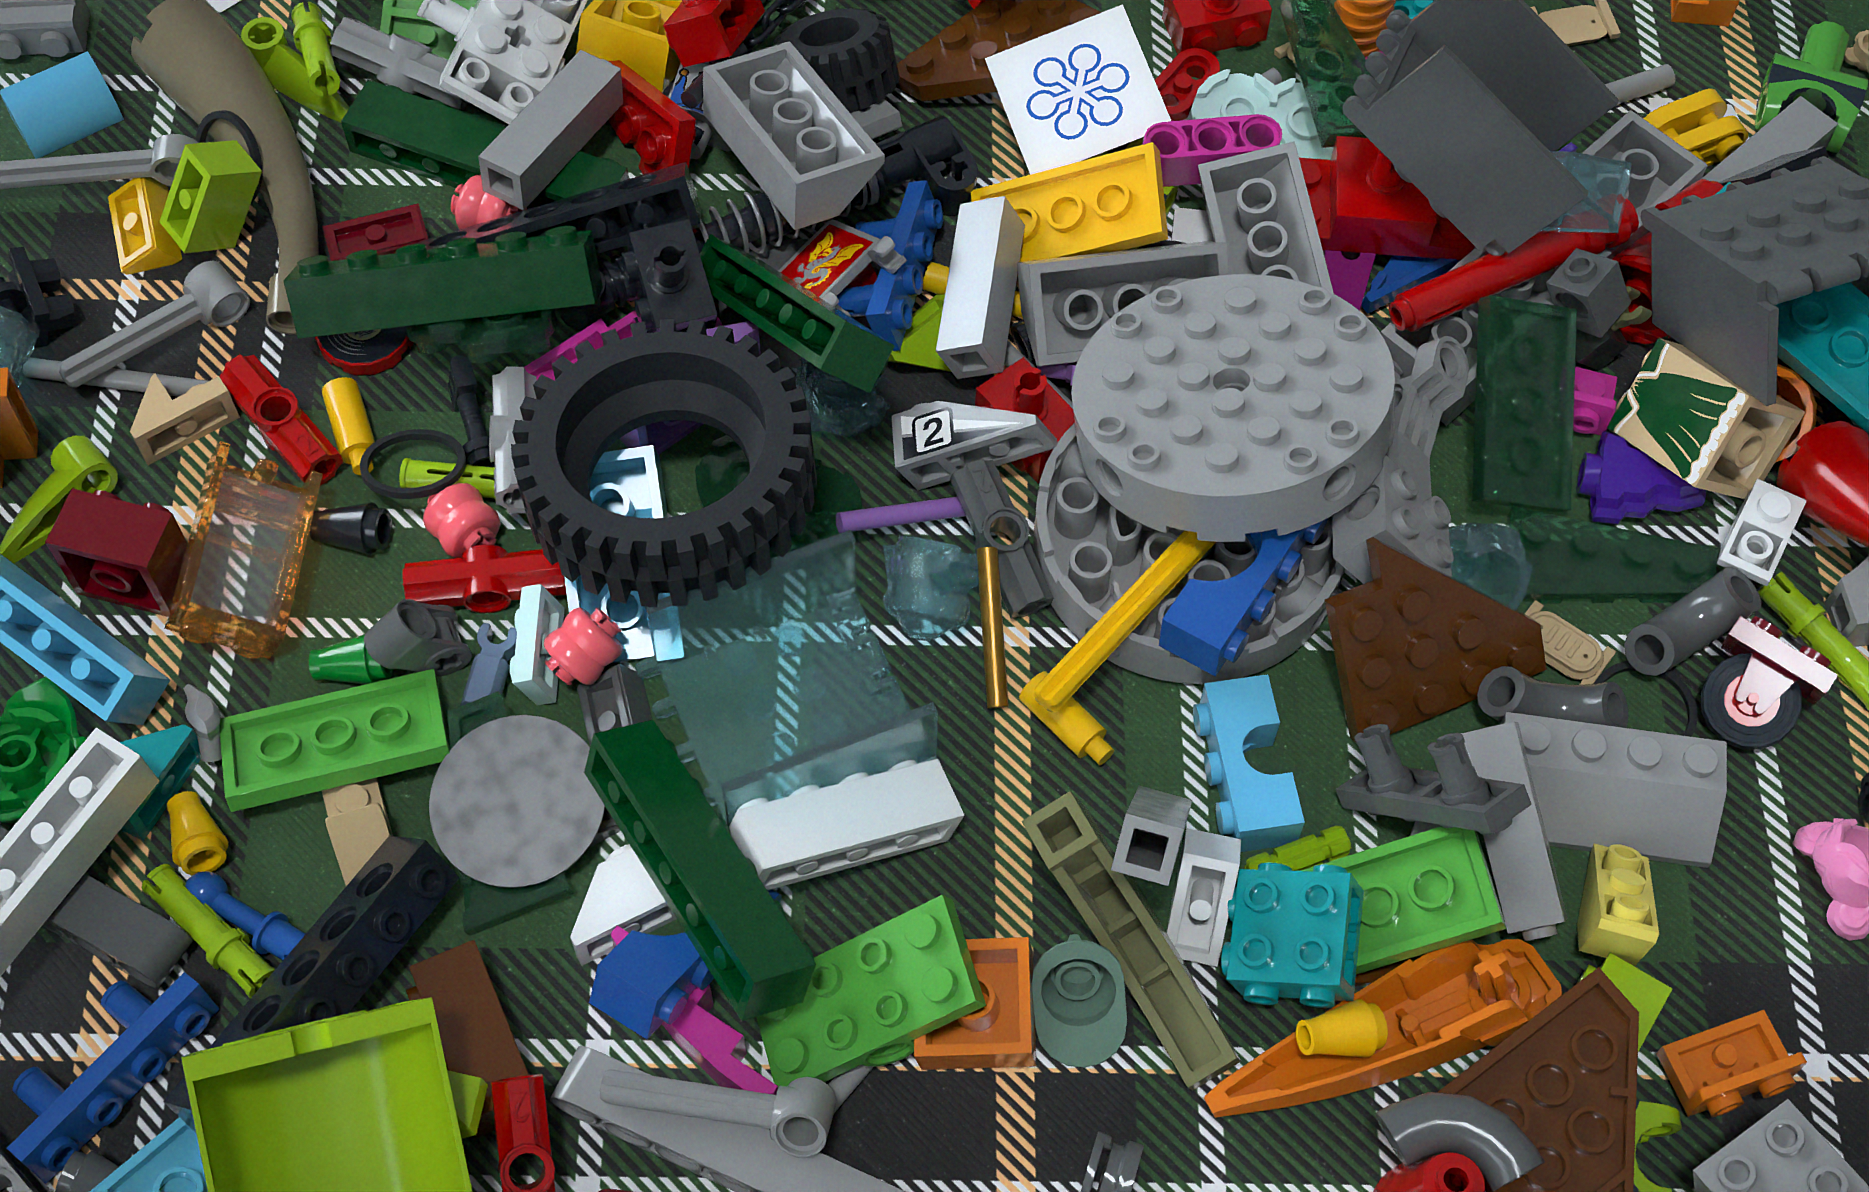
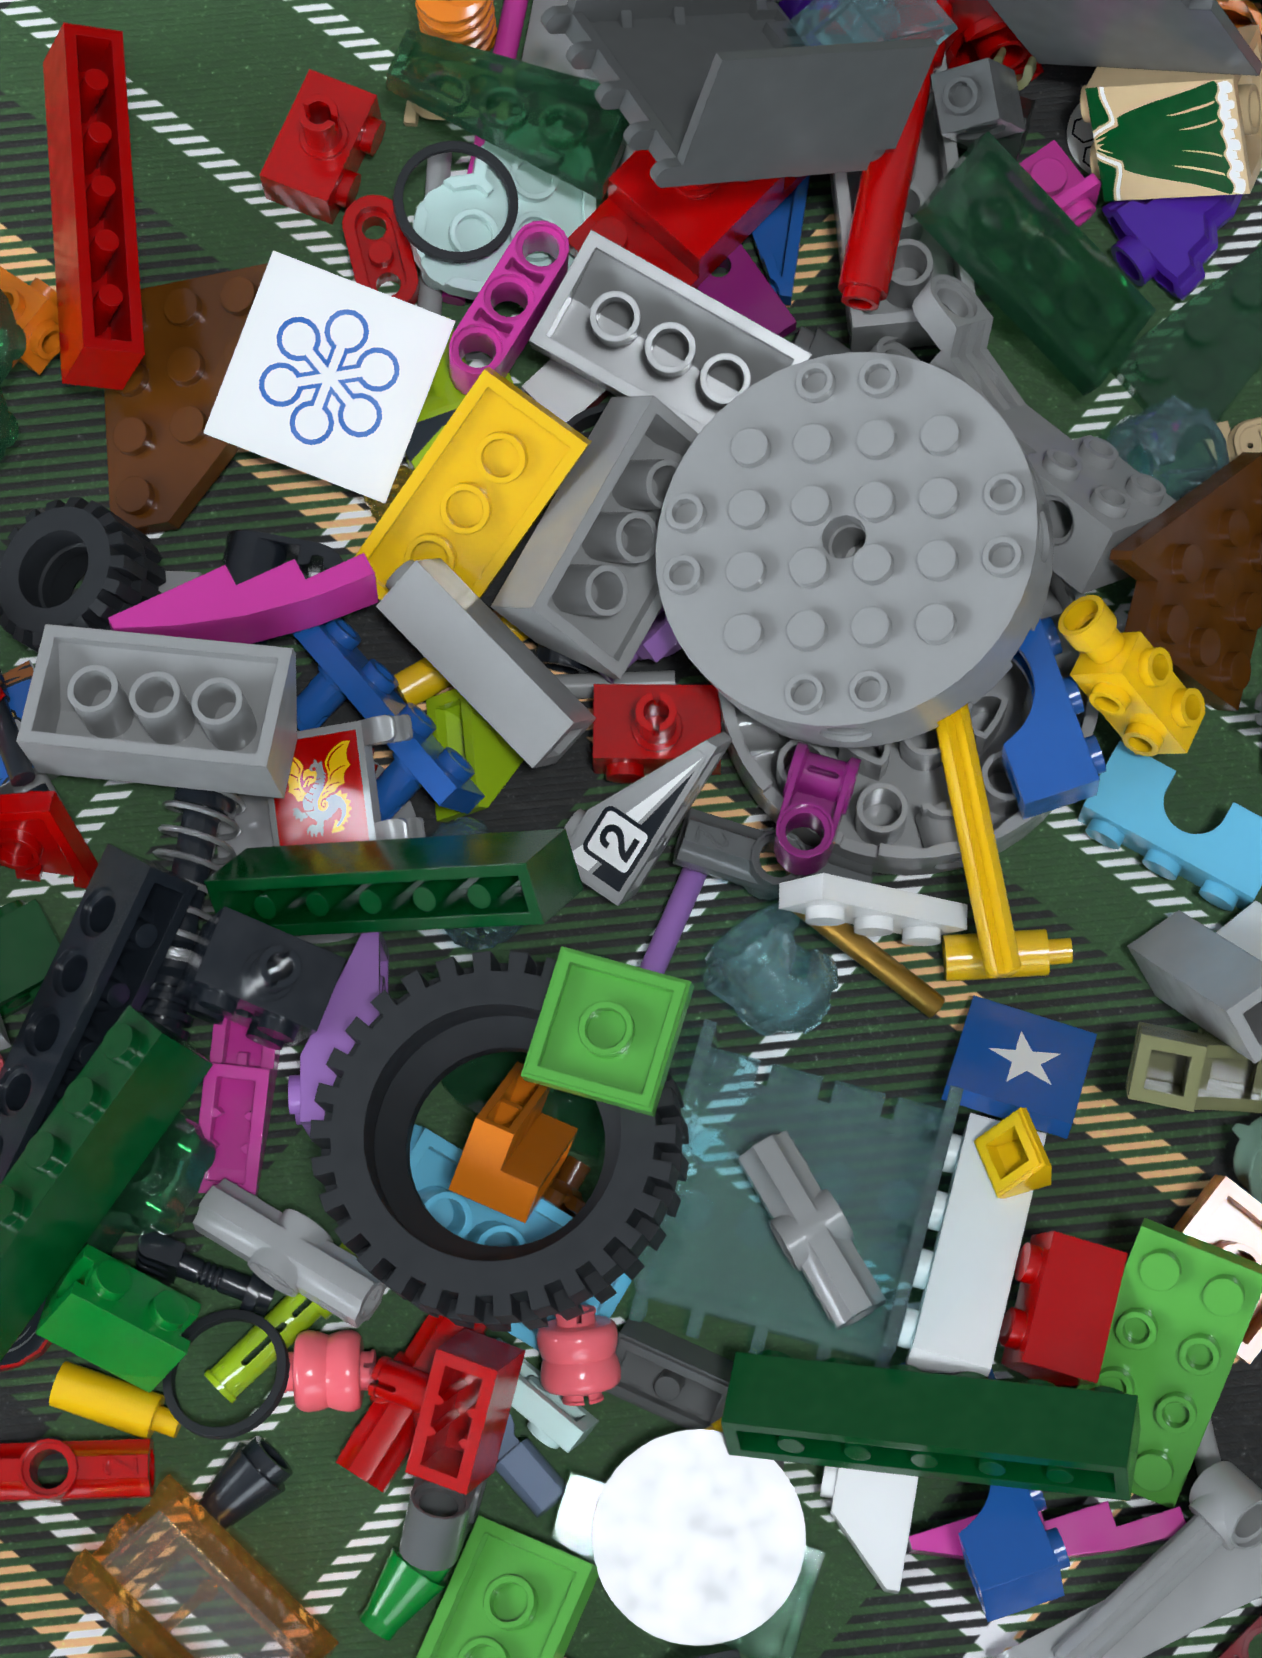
camera: 45 degrees left, 15 degrees up
(398, 377) = (118, 1318): none -> green brick
(486, 589) = (459, 1405): none -> red brick
(672, 479) = (513, 1149): none -> orange piece
(779, 445) = (607, 1031): none -> bright green tile
(784, 713) = (811, 1230): none -> light grey piece
(848, 897) = (1062, 1309): none -> red slope
(908, 145) = (255, 609): none -> dark pink slope
(929, 797) = (1014, 1156): none -> yellow slope
(995, 772) = (1020, 1061): none -> blue tile
(1018, 597) = (872, 908): none -> white plate
(1059, 508) = (814, 798): none -> magenta piece
(1252, 48) = (475, 151): none -> black piece
(1296, 646) = (1130, 681): none -> yellow brick

